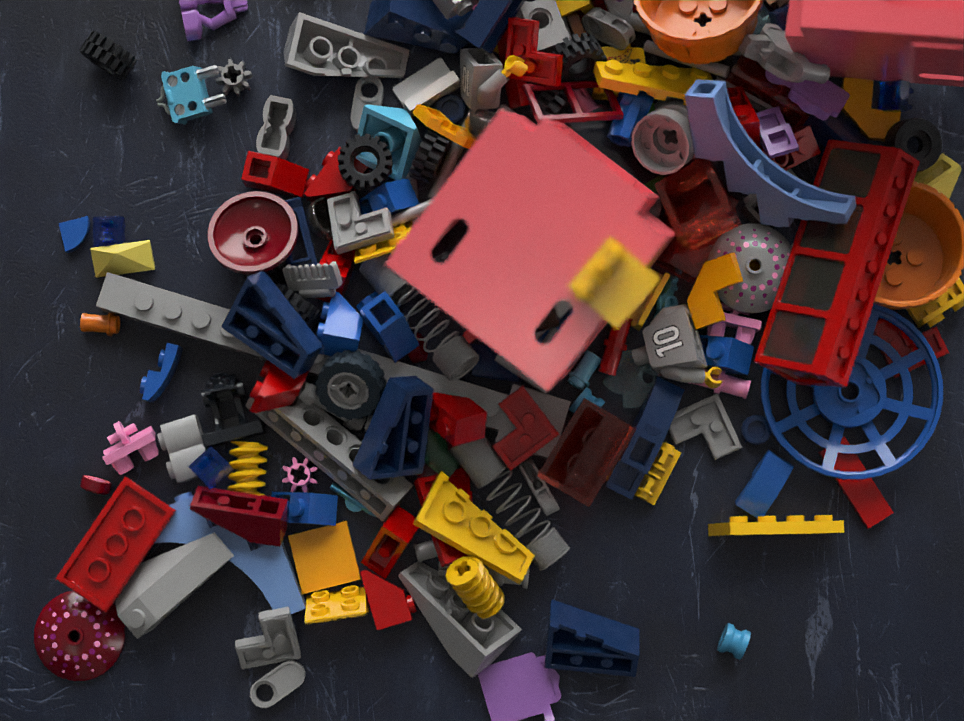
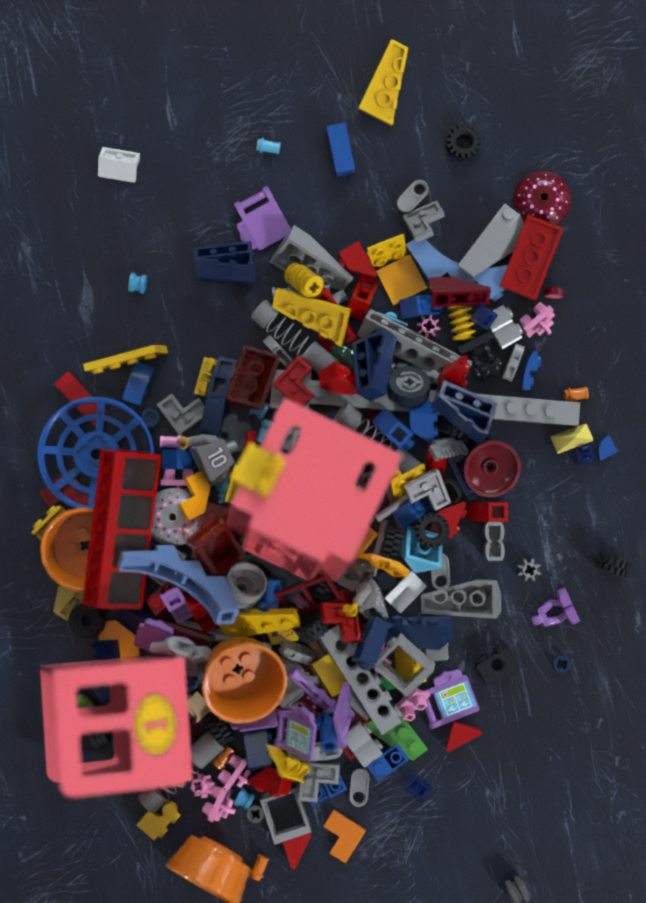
camera: 170 degrees right, 5 degrees up
(183, 392) = (513, 362): none -> light grey piece
(186, 93) = (556, 552): medium azure piece -> none

